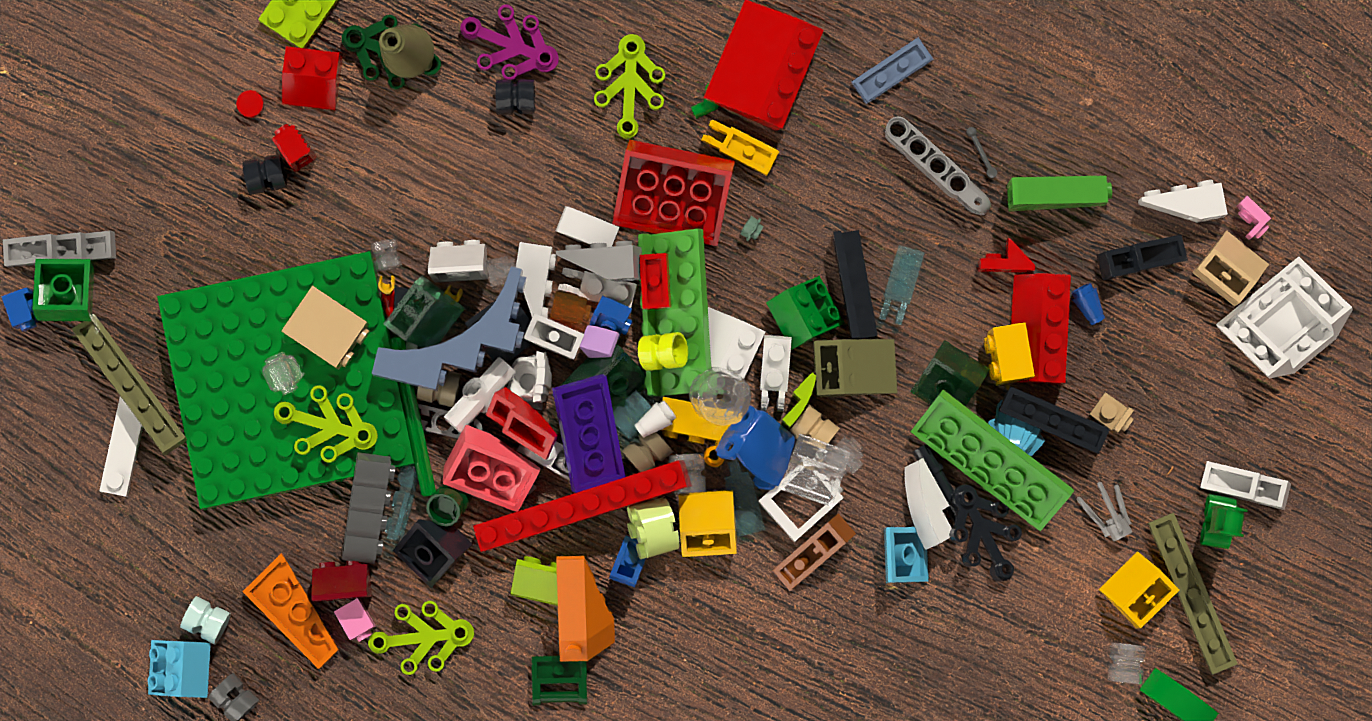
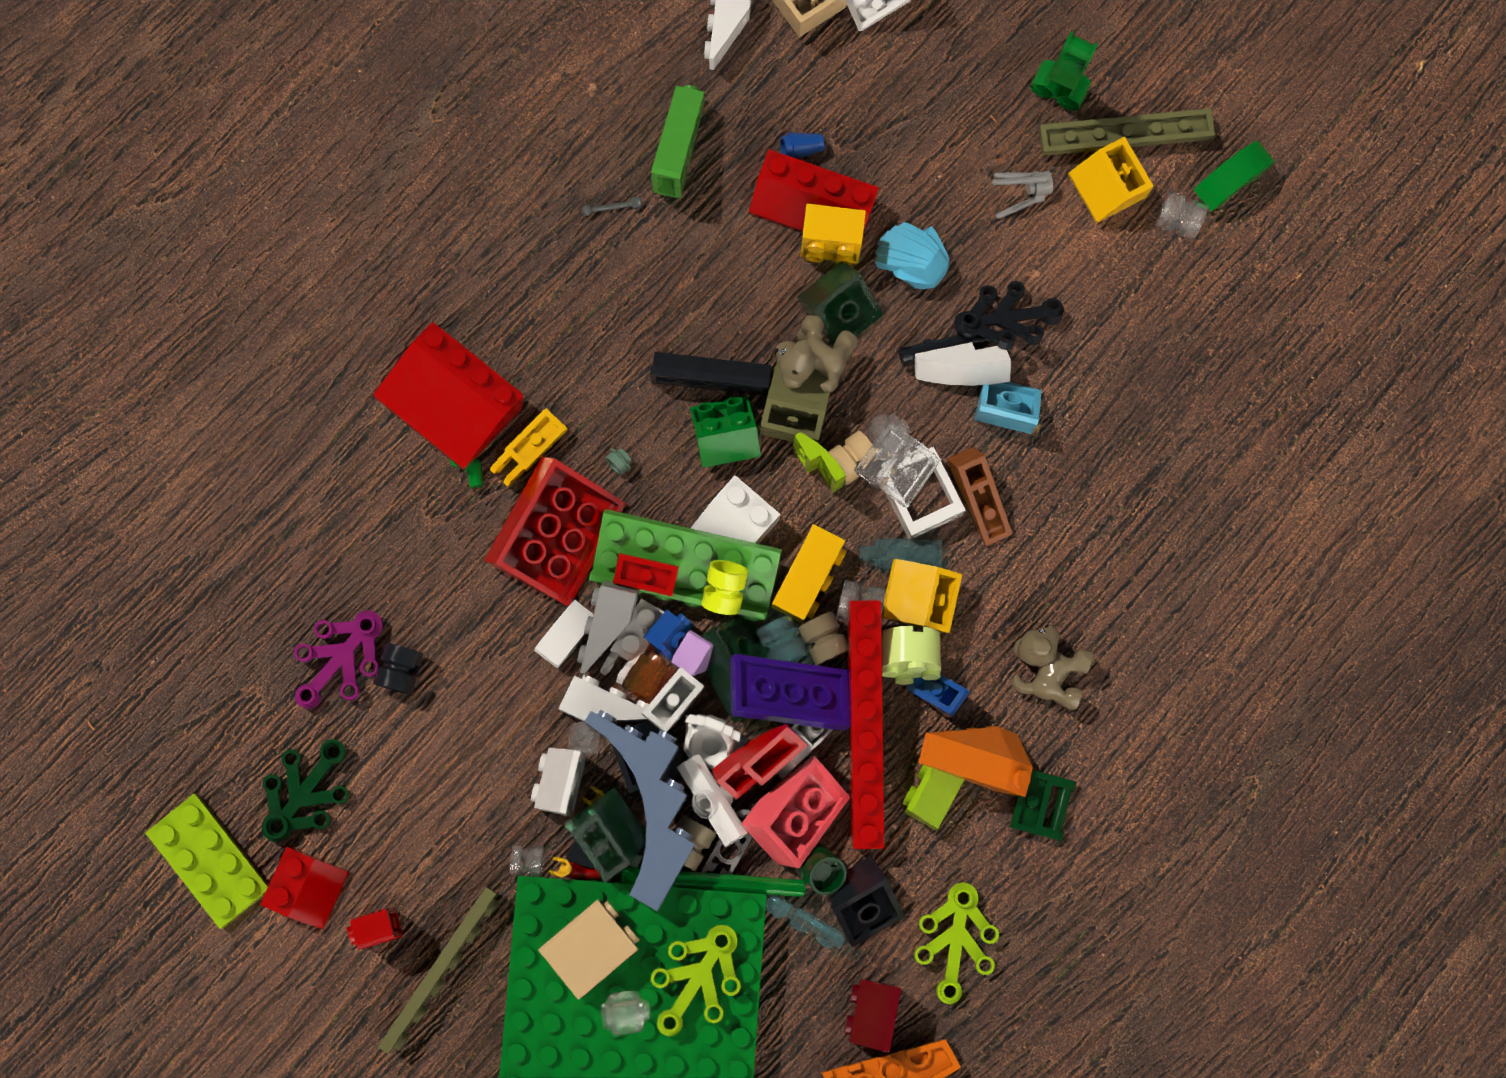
camera: 80 degrees left, 5 degrees down
(250, 104) = (311, 965): red tile -> none
(264, 174) = (395, 971): black wheel -> none
(286, 215) = (433, 981): none -> olive plate
(355, 620) = (919, 1010): bright pink brick -> none
(366, 508) = (800, 961): dark grey brick -> none
(406, 50) = (309, 771): olive cone -> none
(629, 81) = (421, 542): lime plant -> none
(655, 419) = (795, 616): white cone -> none
(691, 641) = (1040, 650): none -> dark tan animal
(712, 463) = (844, 575): light orange pin -> none
(720, 381) = (792, 539): clear brick -> none
(760, 446) = (854, 514): blue piece -> none
(775, 369) = (777, 479): white hinge -> none
(883, 357) = (800, 358): none -> dark tan animal
(892, 71) = (497, 270): sand blue tile -> none
(902, 281) = (722, 324): clear light blue hinge -> none
(951, 170) = (652, 228): light grey piece -> none
(992, 460) = (938, 283): bright green bracket -> none
(1015, 261) = (733, 204): red slope -> none
(1053, 419) = (912, 210): black fence -> none
(1112, 414) = (921, 156): tan bracket -> none
(1141, 257) = (769, 80): black slope -> none
(1246, 485) = (1031, 48): white slope -> none

